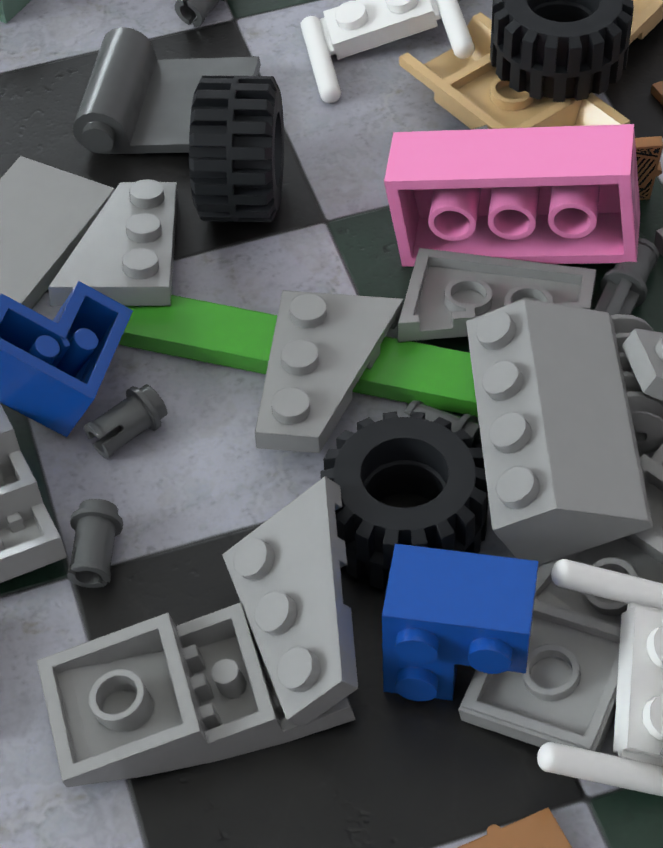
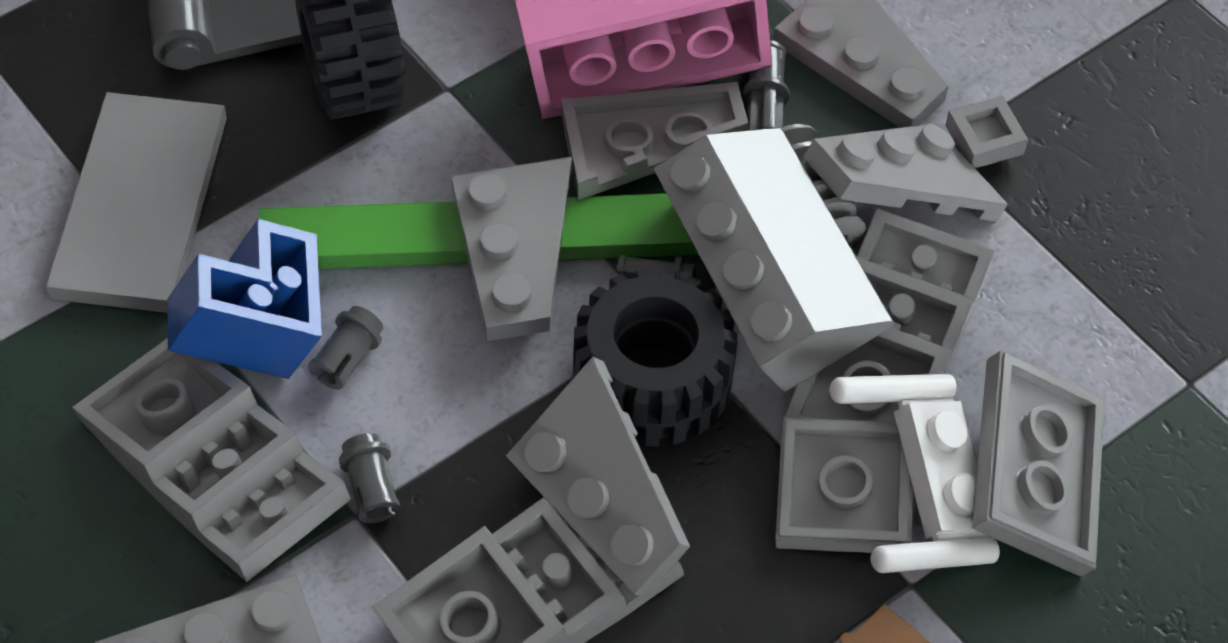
camera: 25 degrees left, 5 degrees up
(126, 248) = (269, 168): light grey wing -> none
(453, 612) = (754, 452): blue brick -> none

